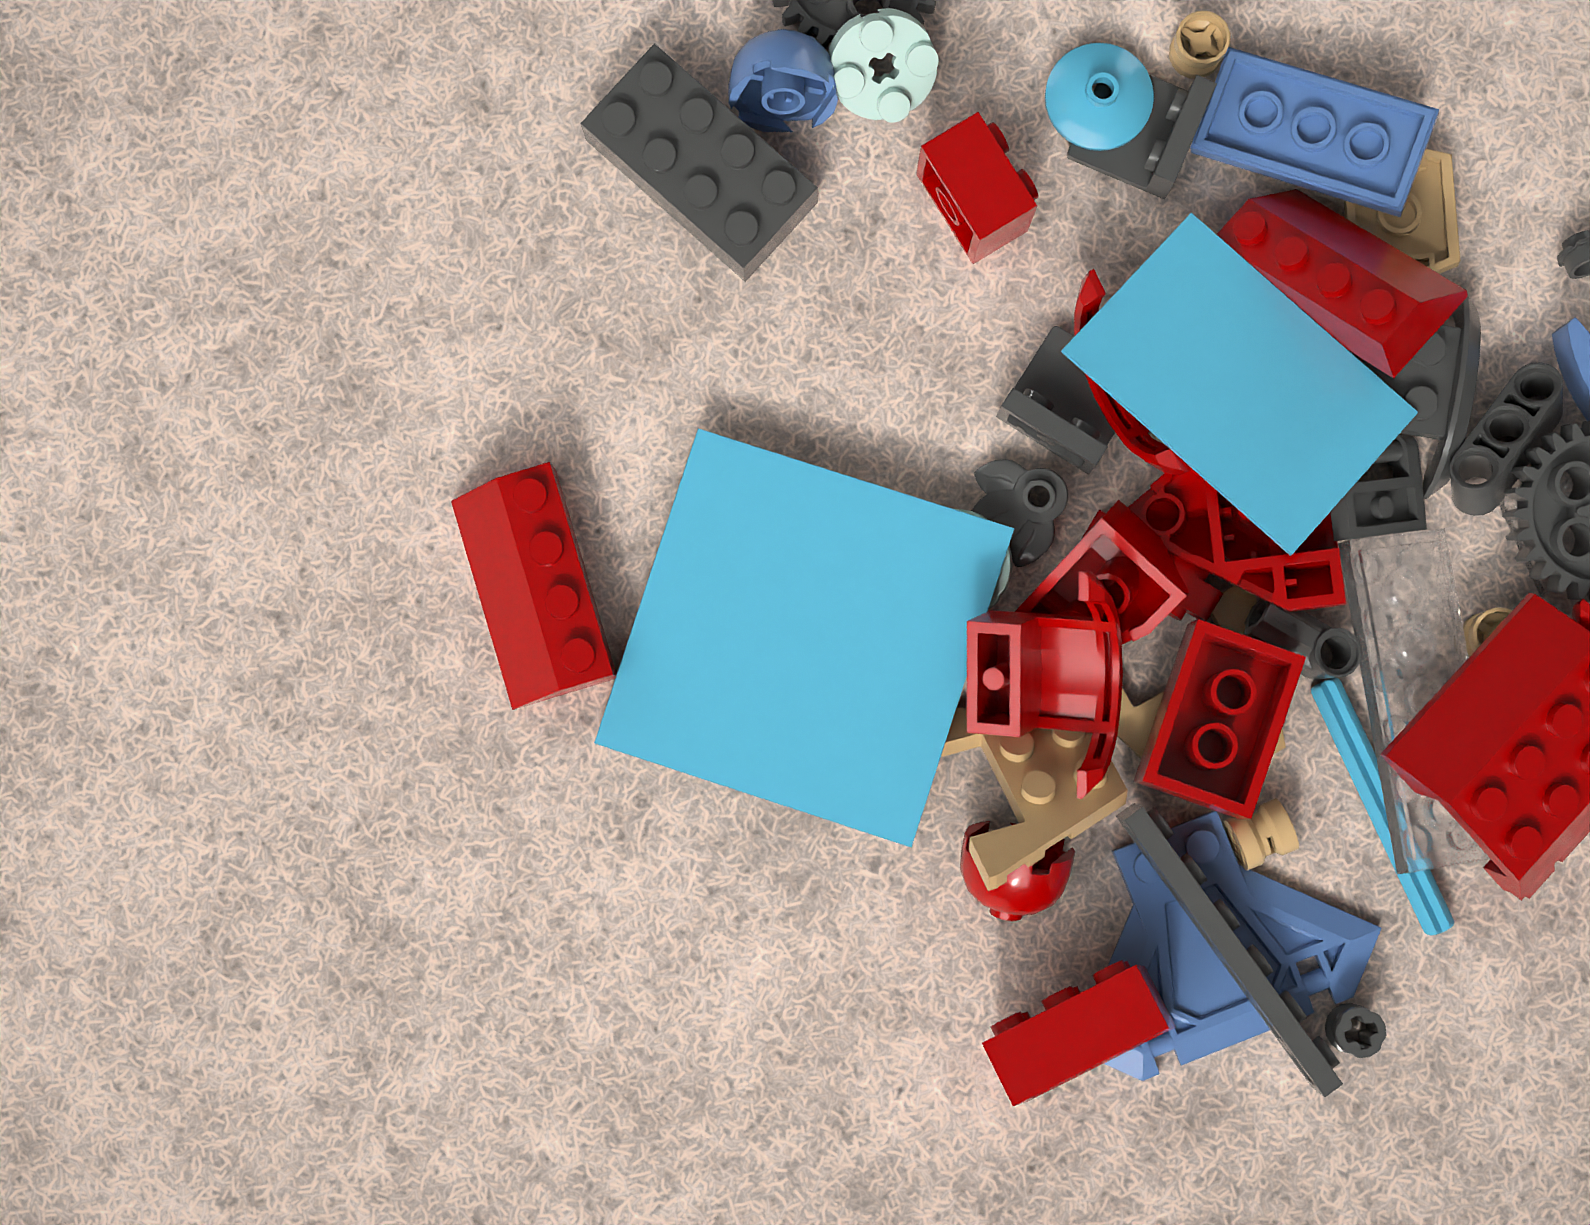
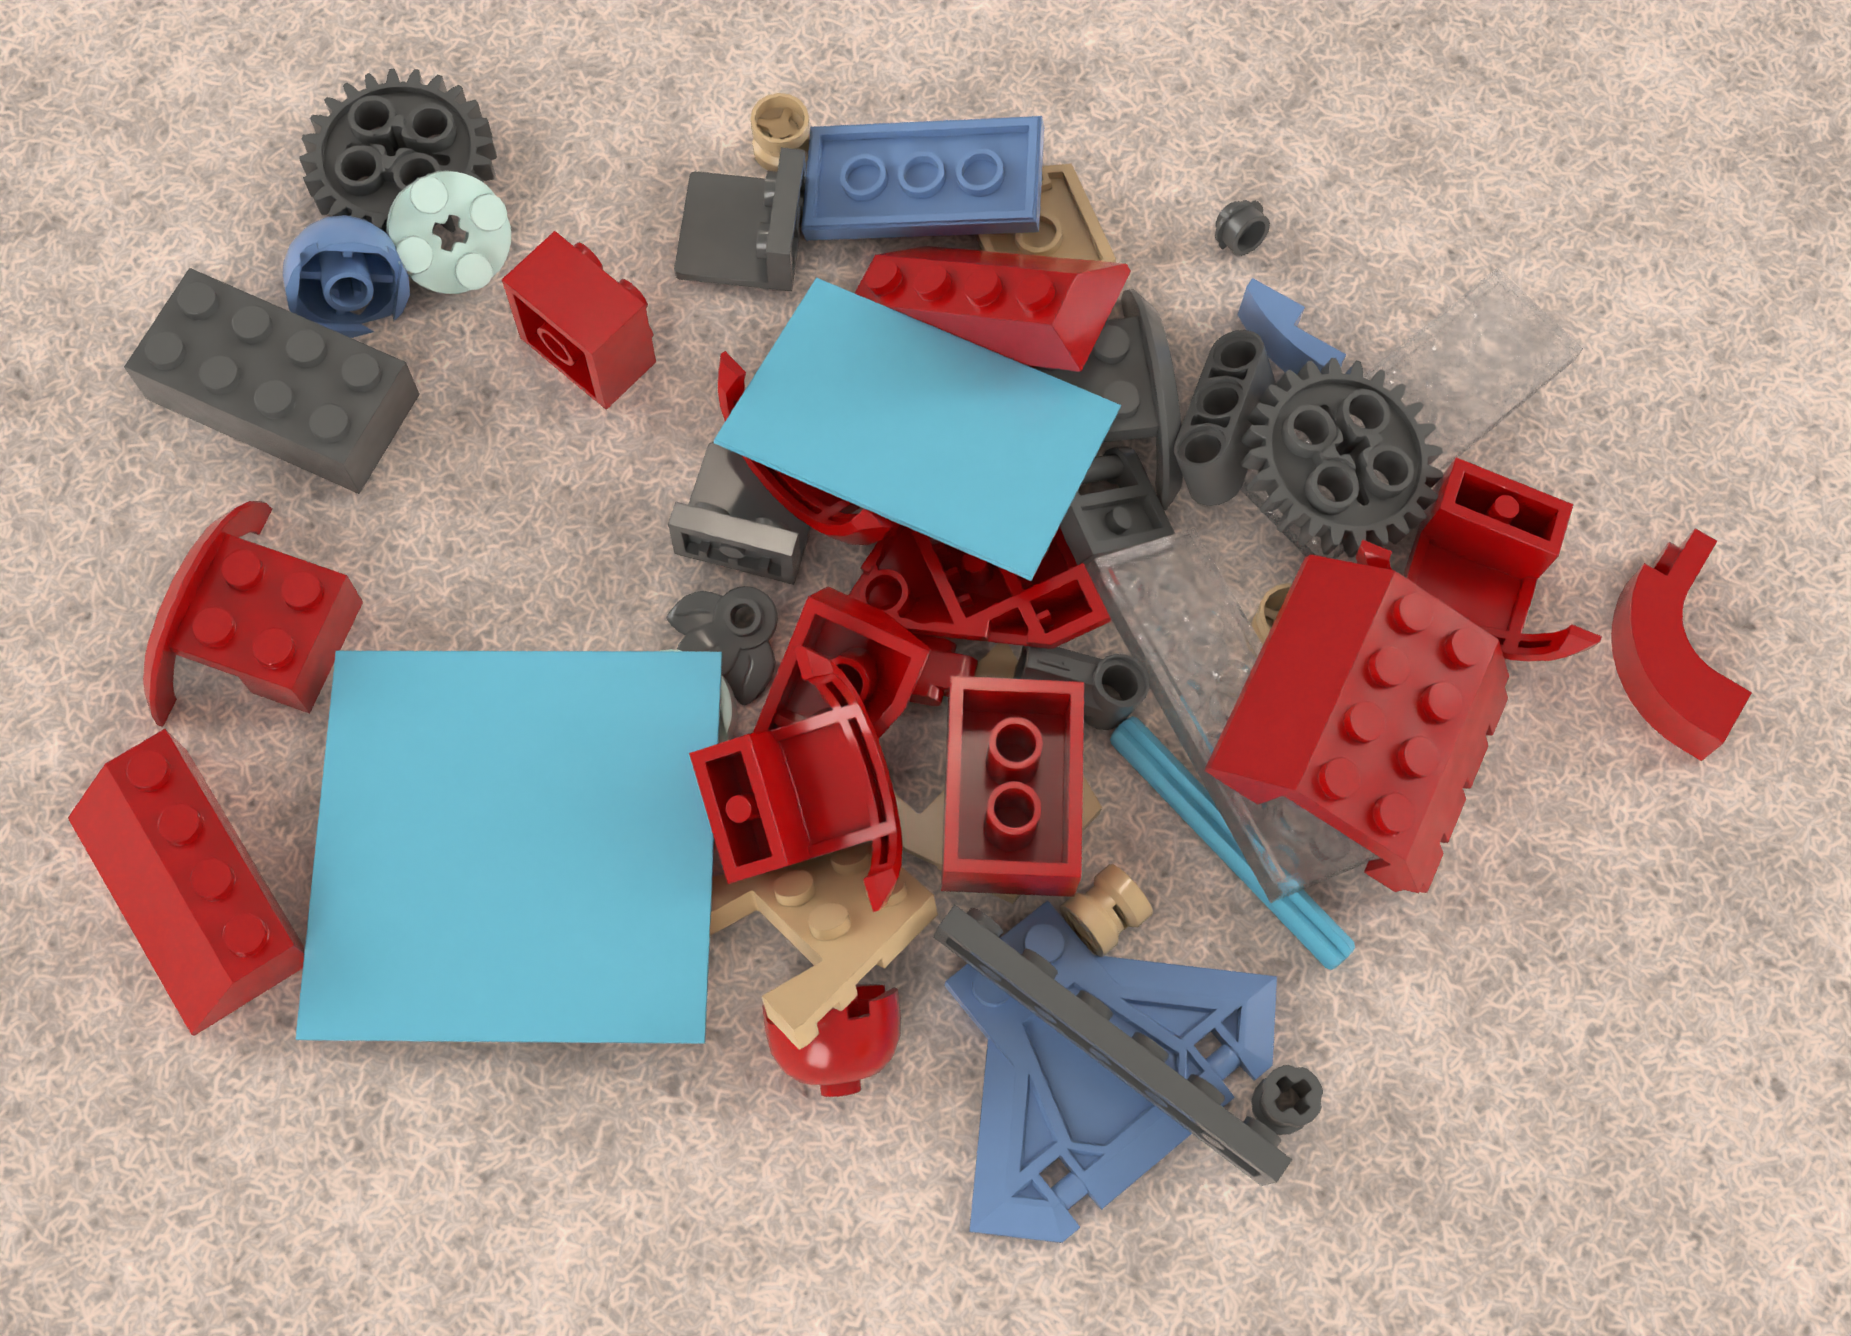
camera: 25 degrees left, 15 degrees down
(633, 375) = (249, 616): none -> red piece
(1077, 1031) = (960, 1198): red brick -> none
(1095, 121) = (694, 228): medium azure dish -> none

